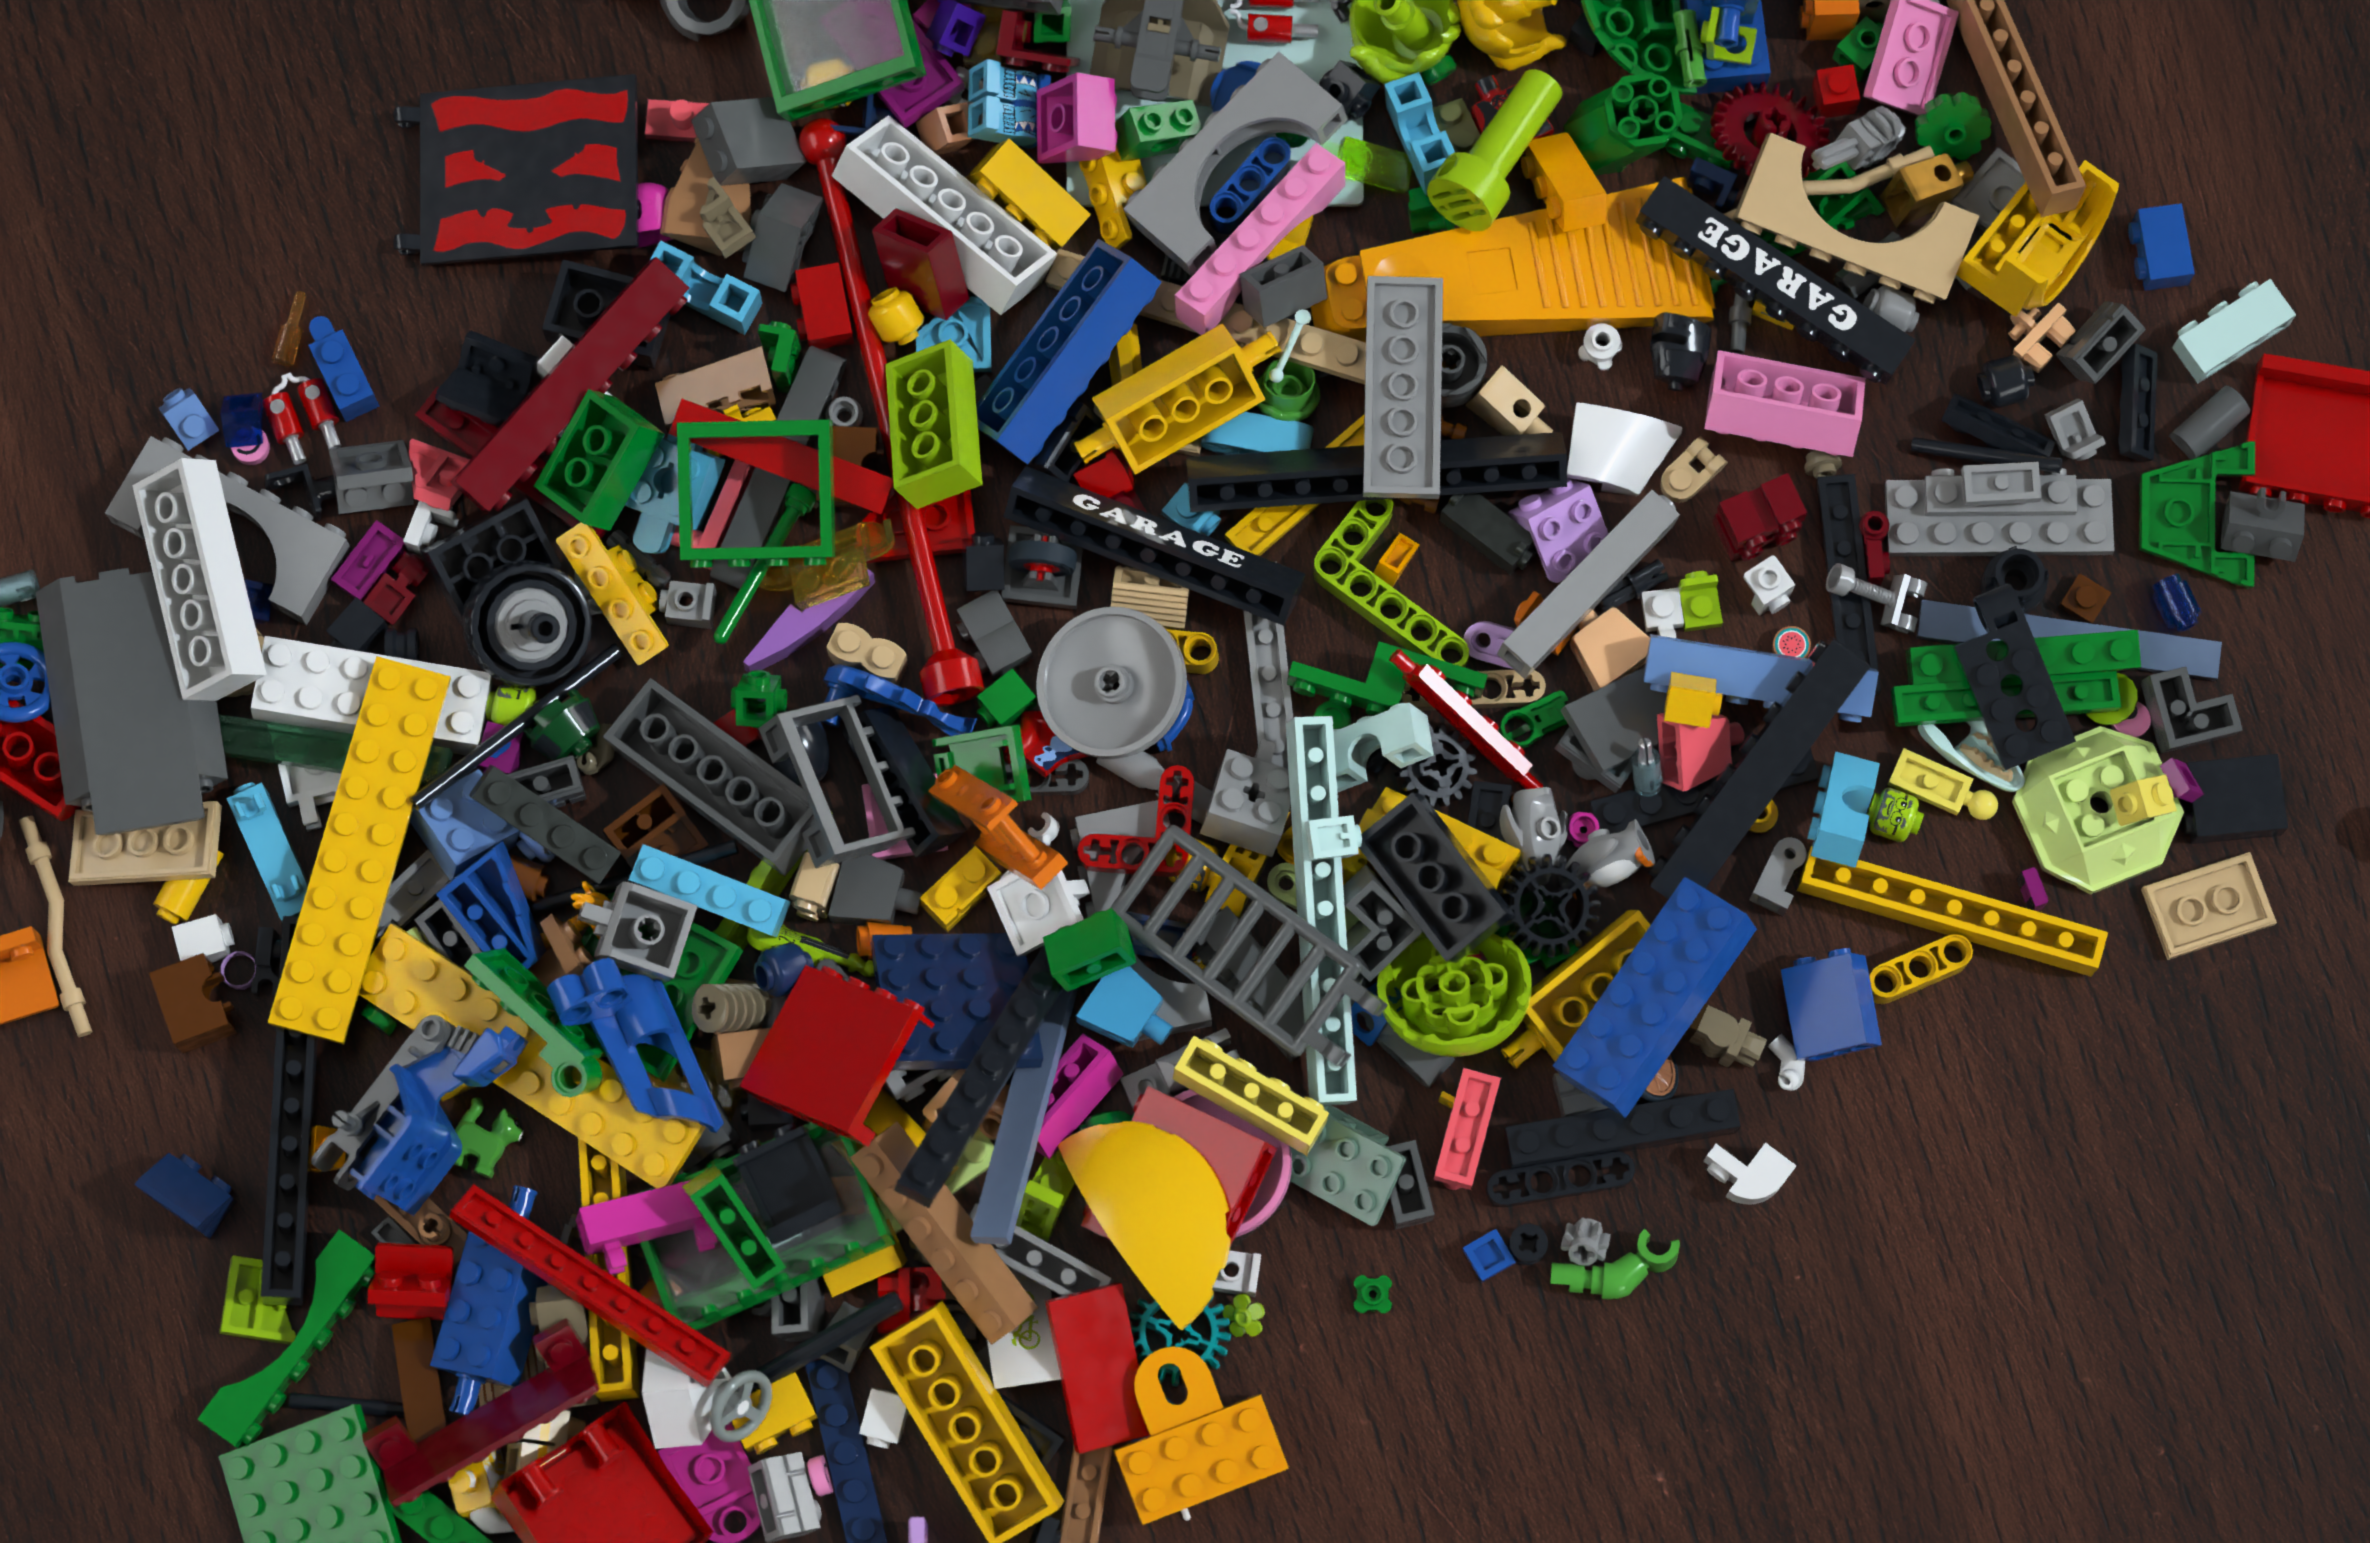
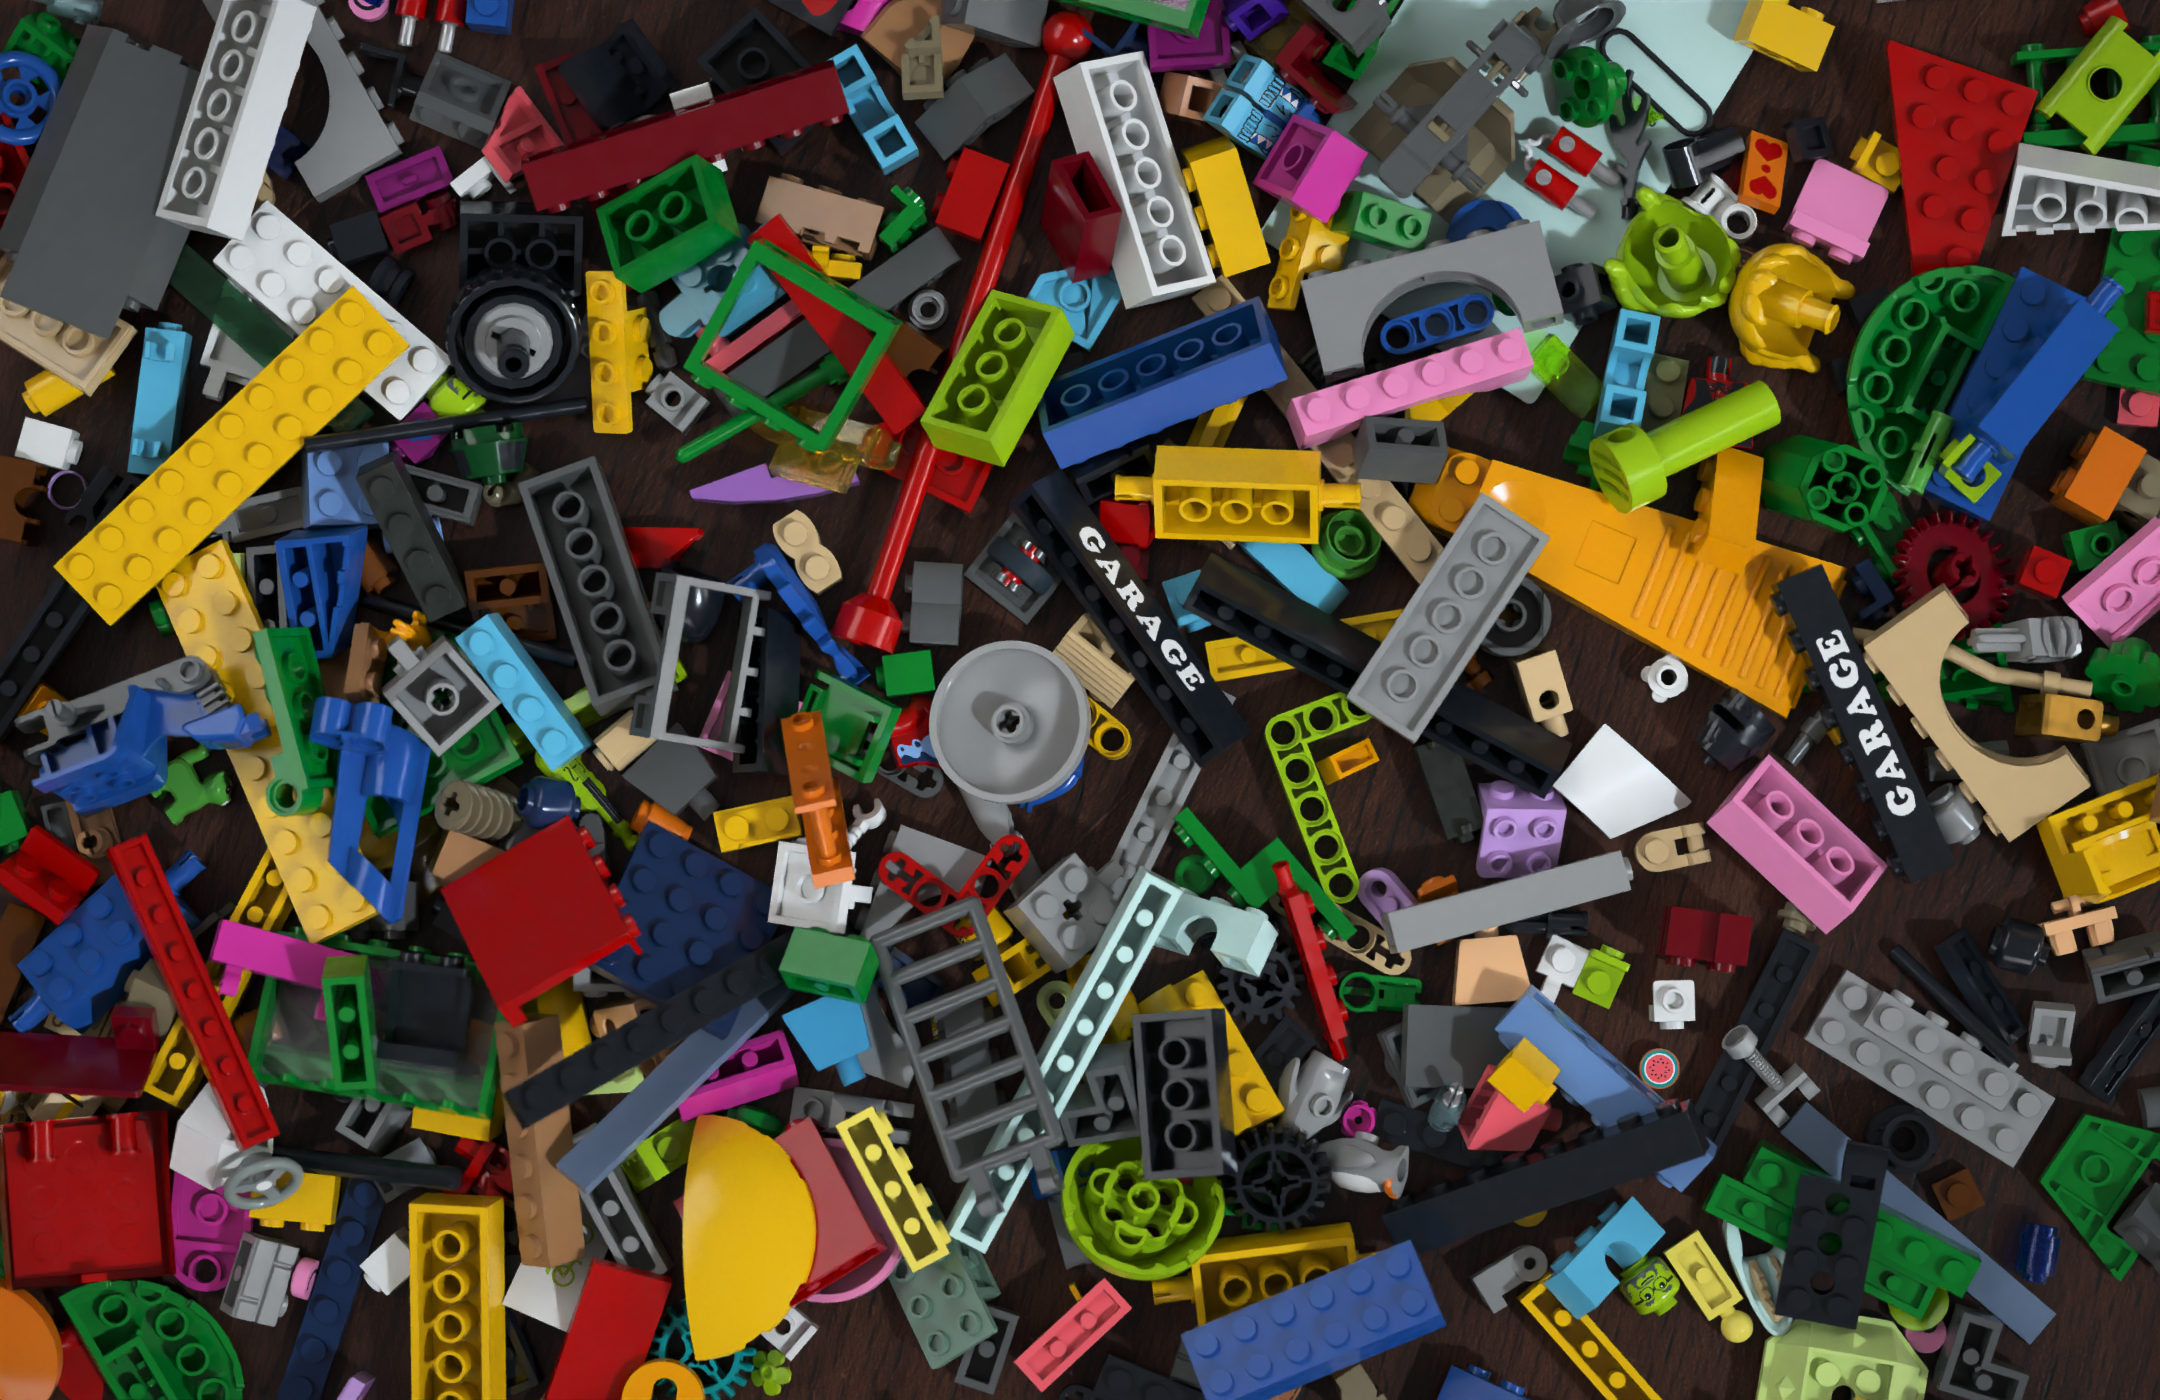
camera: 30 degrees right, 10 degrees up
(758, 698) = (678, 538): green brick -> none
(896, 316) = (1029, 249): yellow head -> none
(983, 562) = (965, 533): black brick -> none
(1302, 317) = (1398, 490): light aqua hinge -> none
(1333, 837) = (1111, 1006): light aqua bracket -> none
(1439, 71) = (1692, 323): green tile -> none
(1876, 561) = (1787, 1040): dark red plate -> none
(2001, 483) = (1946, 1046): light grey plate -> none

